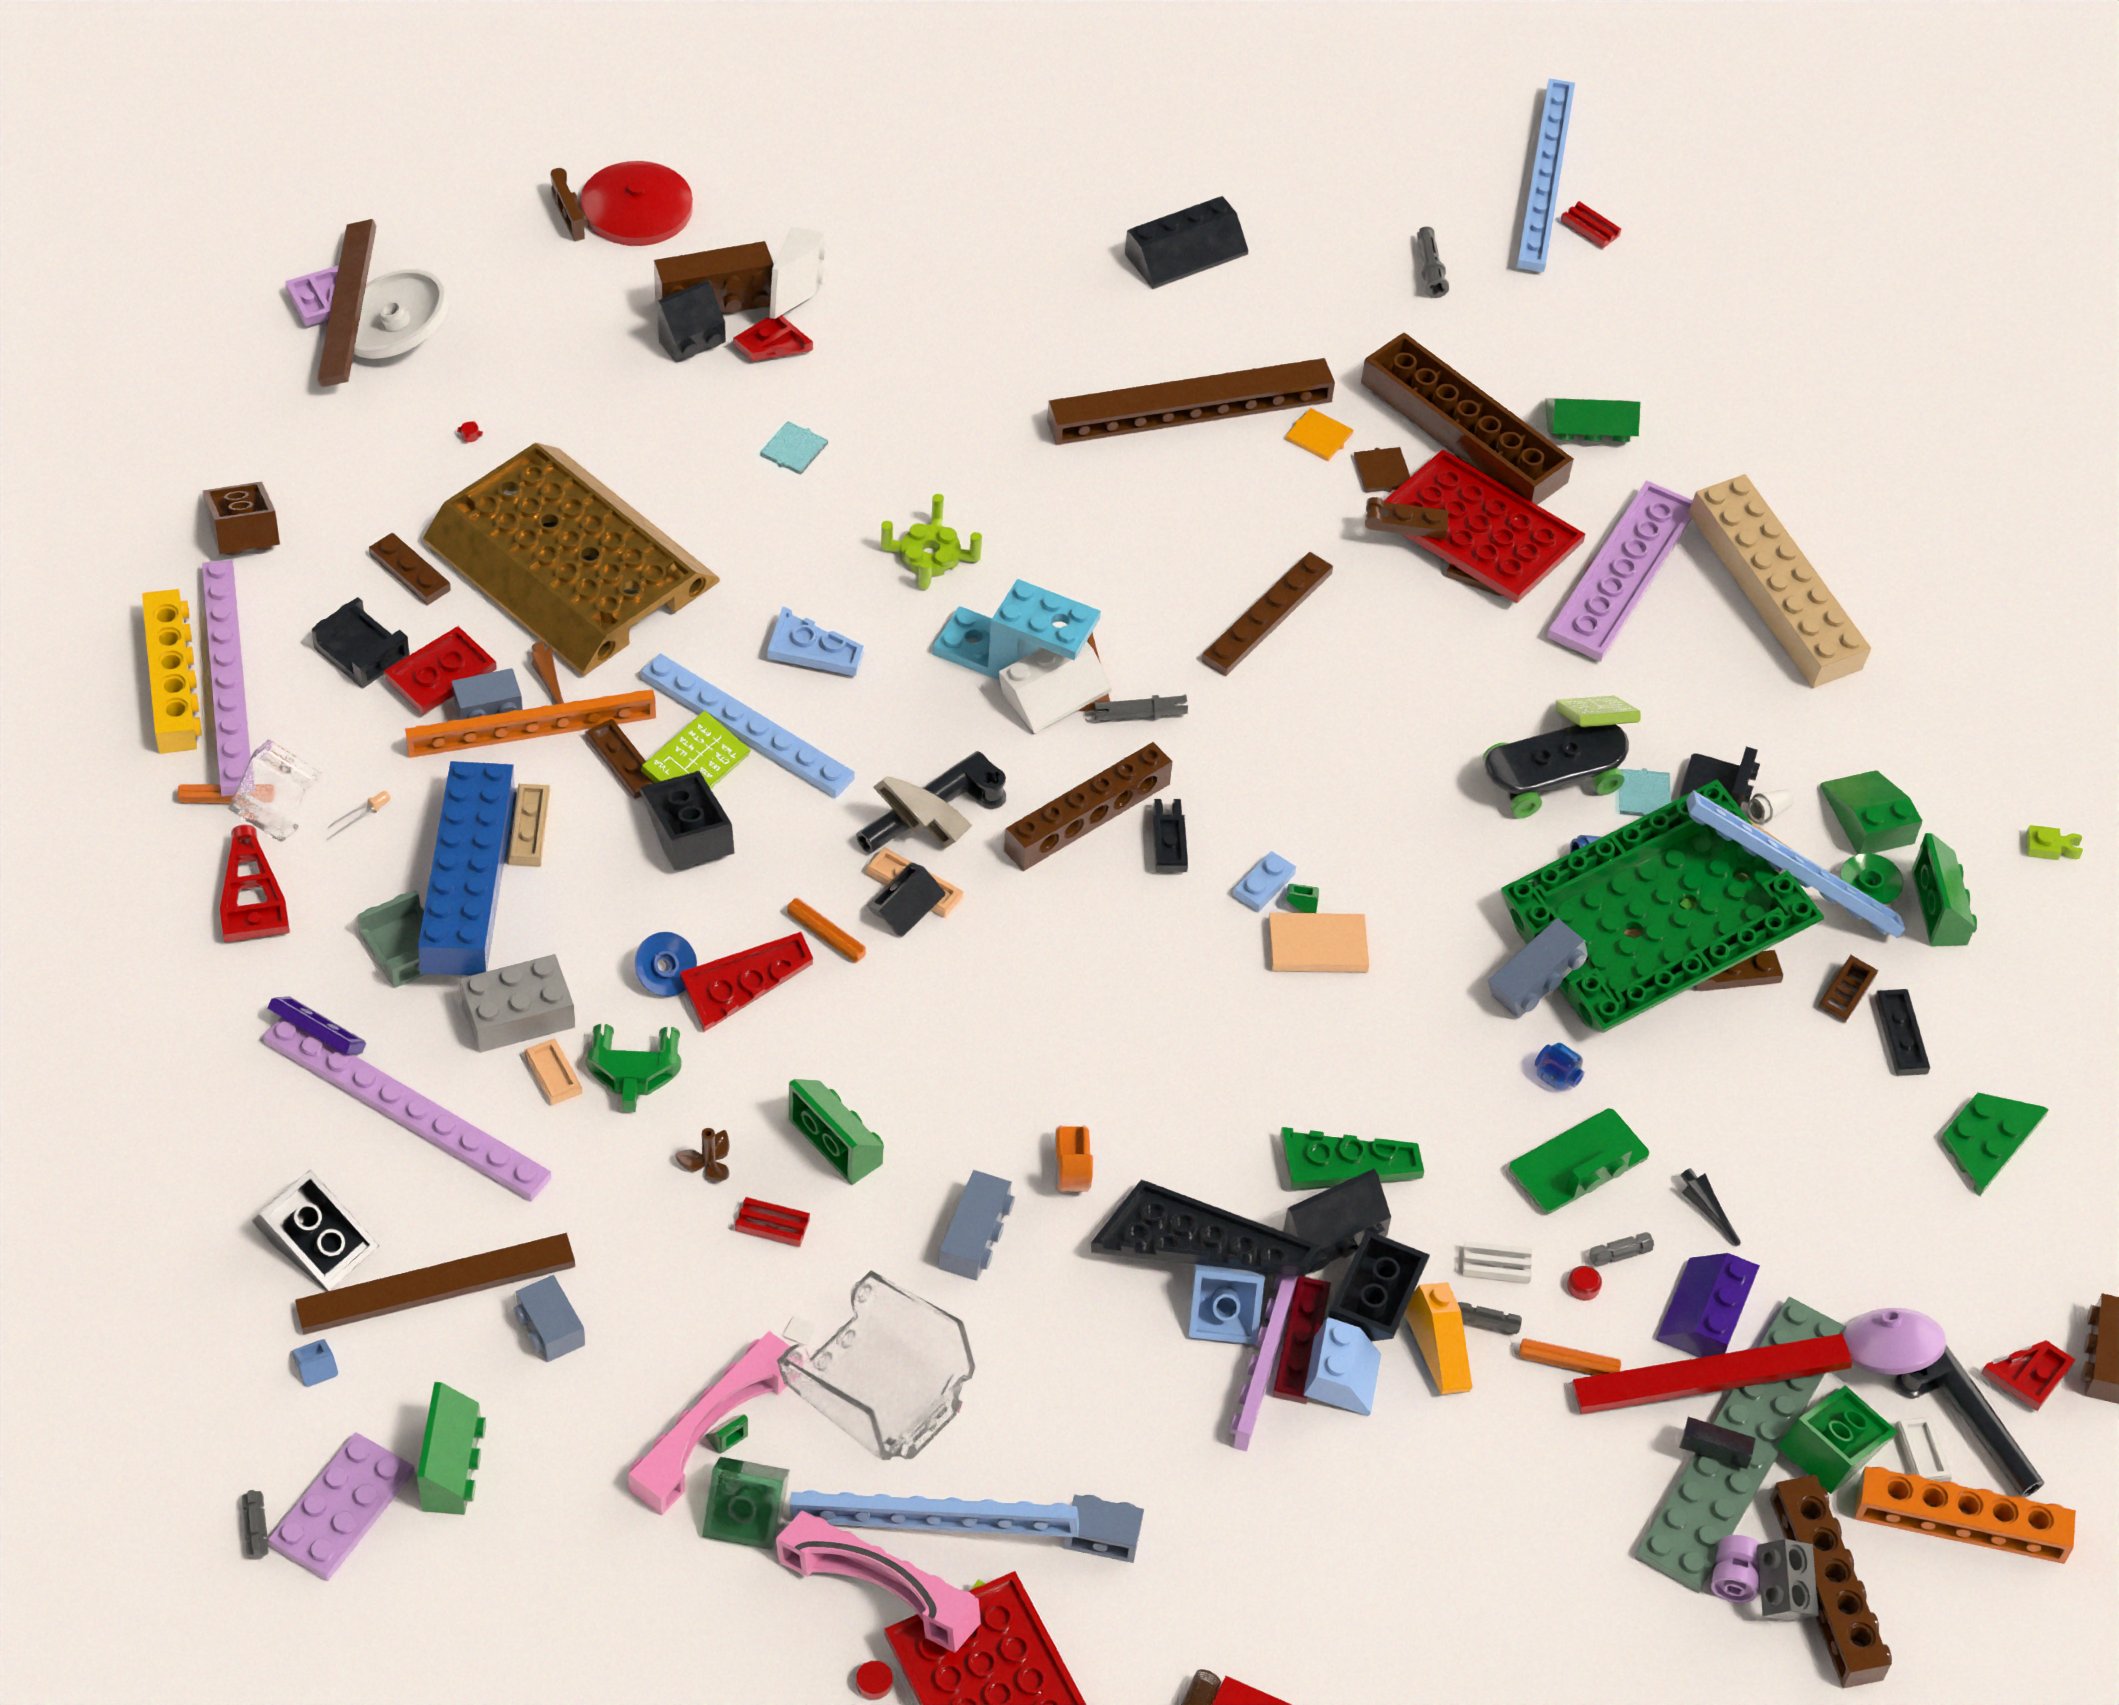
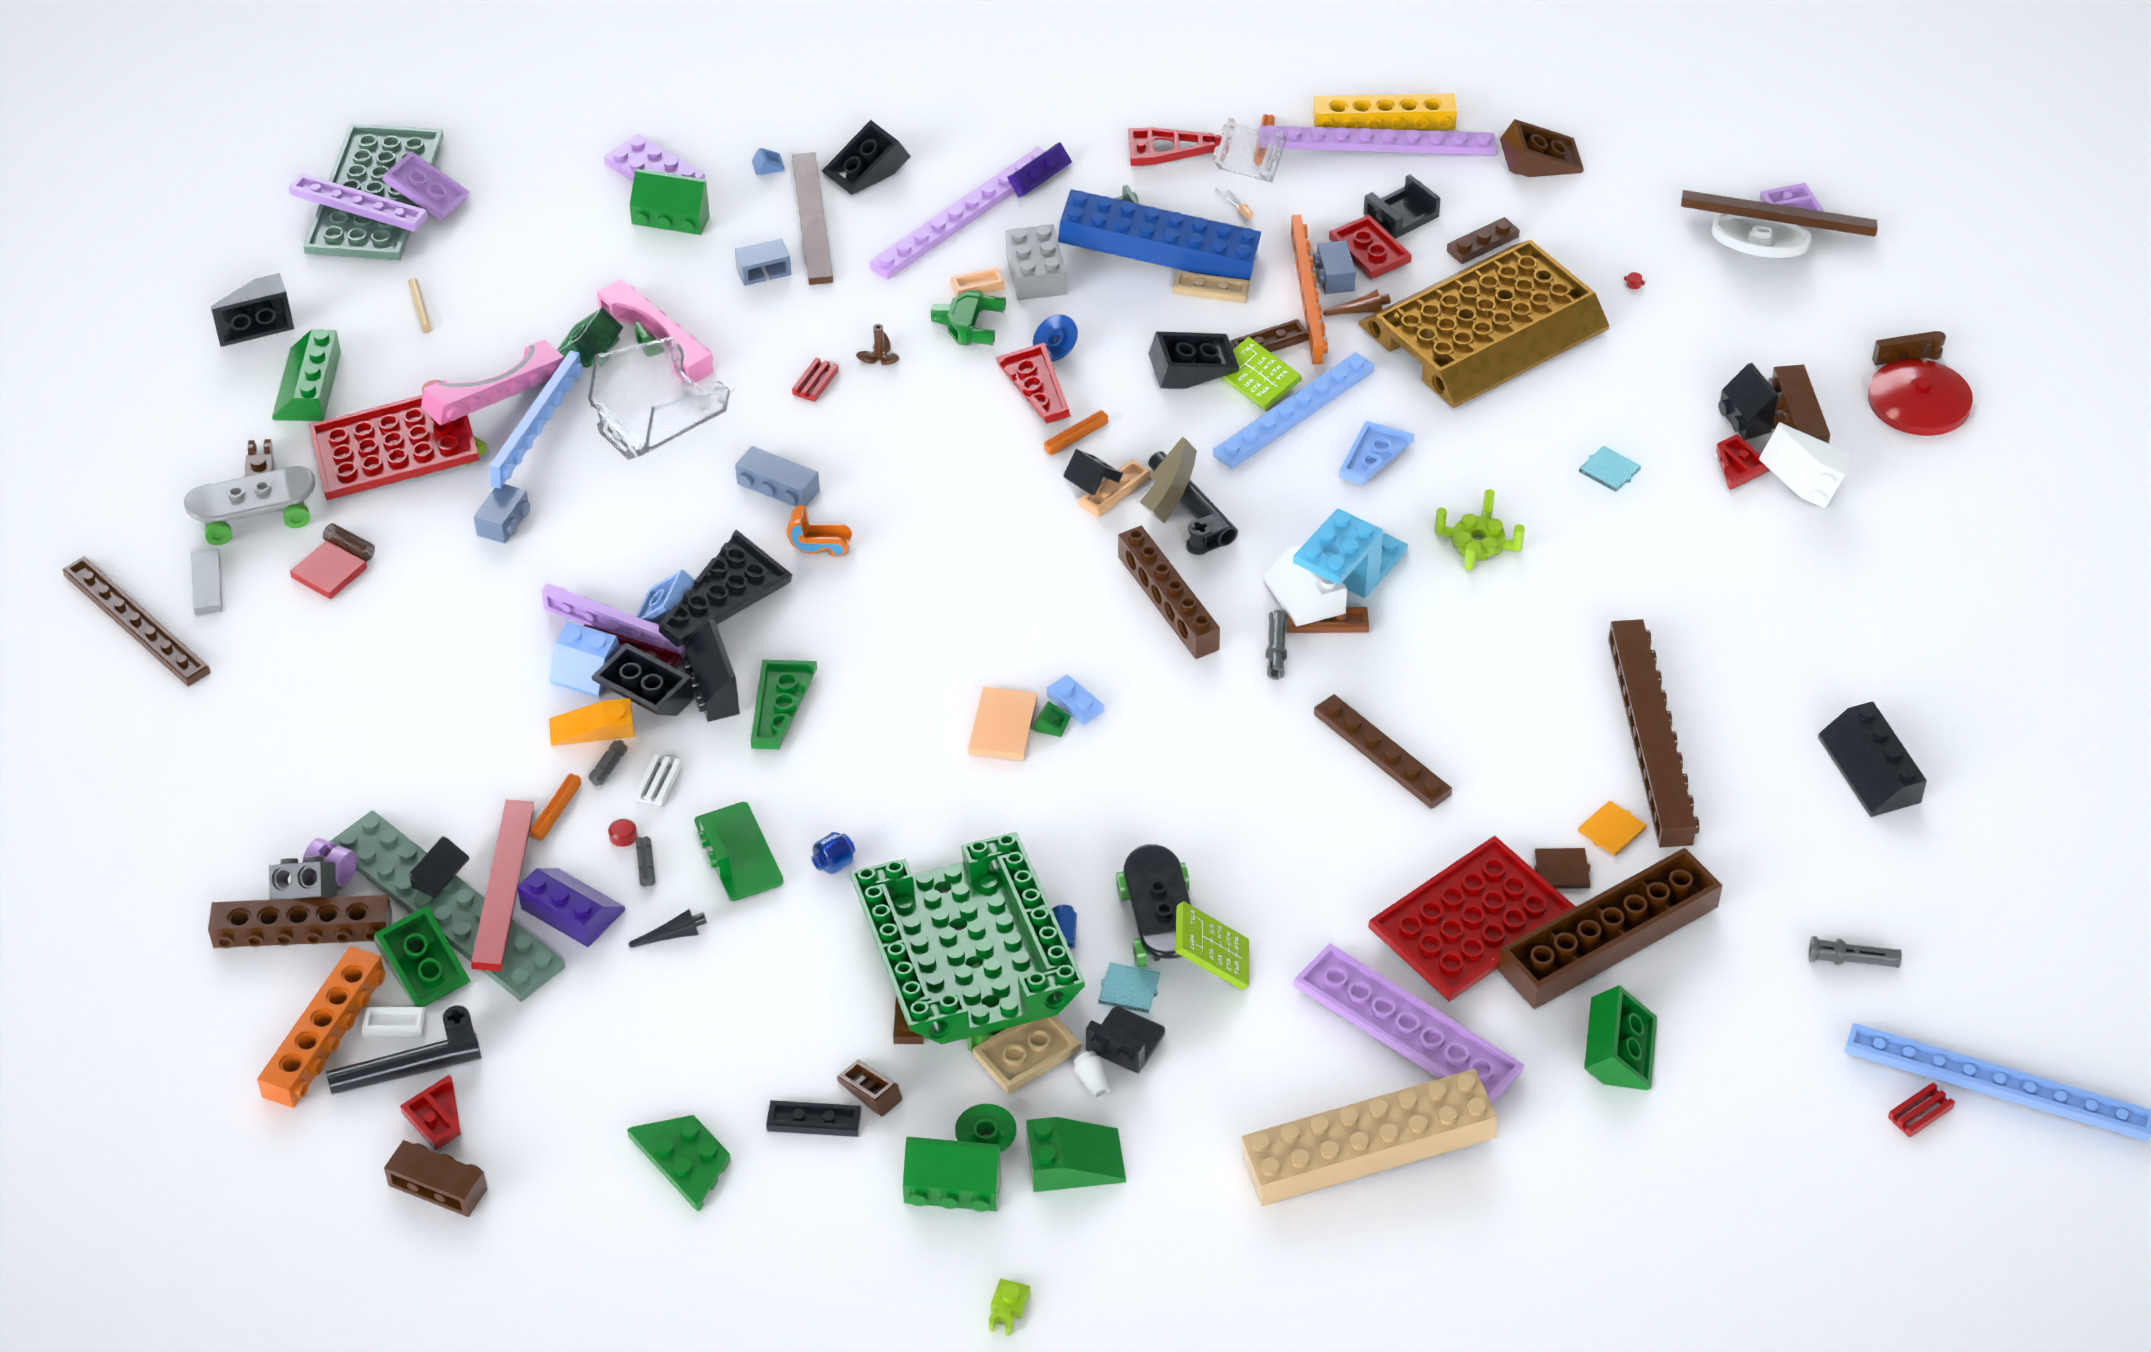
camera: 105 degrees right, 5 degrees down
(255, 1524) = (653, 130): dark grey axle -> none
(834, 1129) = (878, 404): green slope -> none
(1169, 838) = (1133, 642): black hinge -> none
(1406, 519) = (1472, 851): reddish brown plate -> none
(1538, 968) = (929, 846): sand blue brick -> none
(1803, 870) = (983, 1030): light blue plate -> none
(1894, 1341) = (490, 1010): lavender dish -> none

